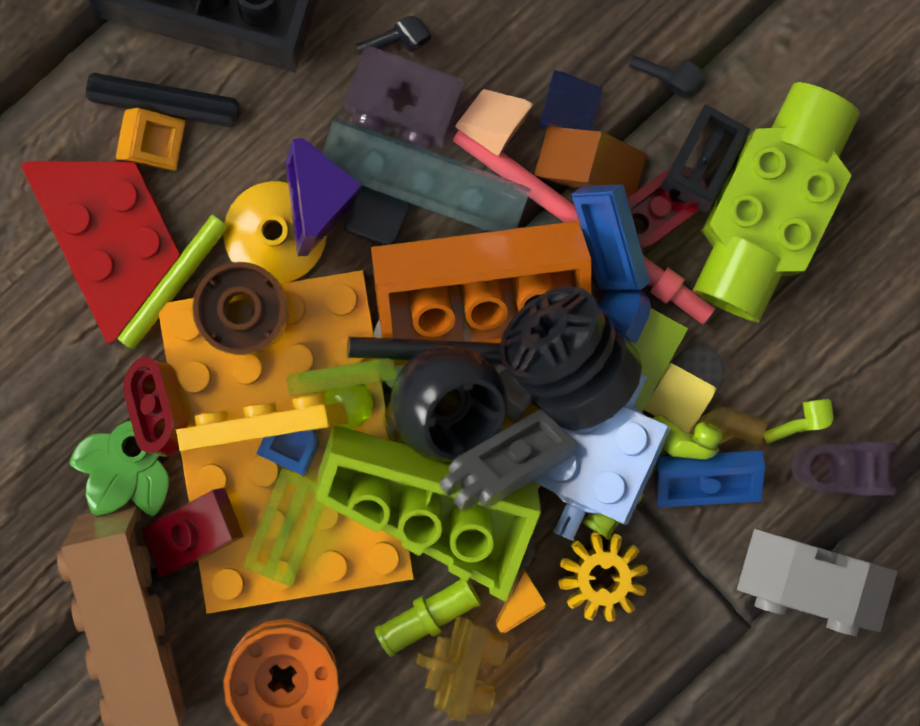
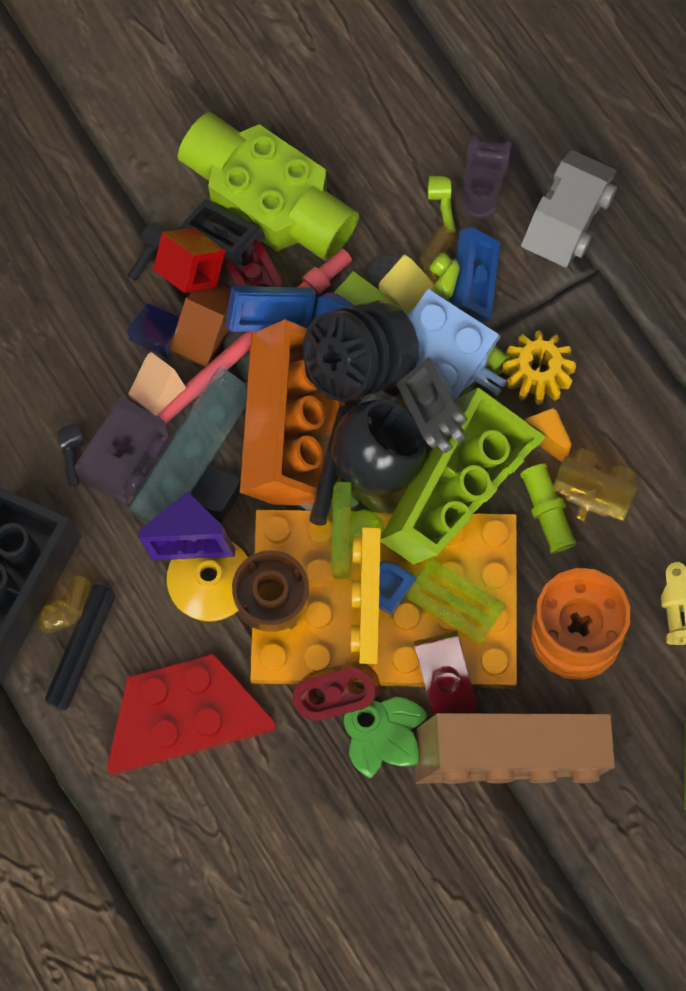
camera: 80 degrees left, 15 degrees down
(150, 139) = (109, 665): light orange slope -> none
(172, 282) = (234, 664): lime bar -> none
(202, 75) = (67, 609): none -> clear yellow arm
(657, 125) = (189, 260): none -> red brick

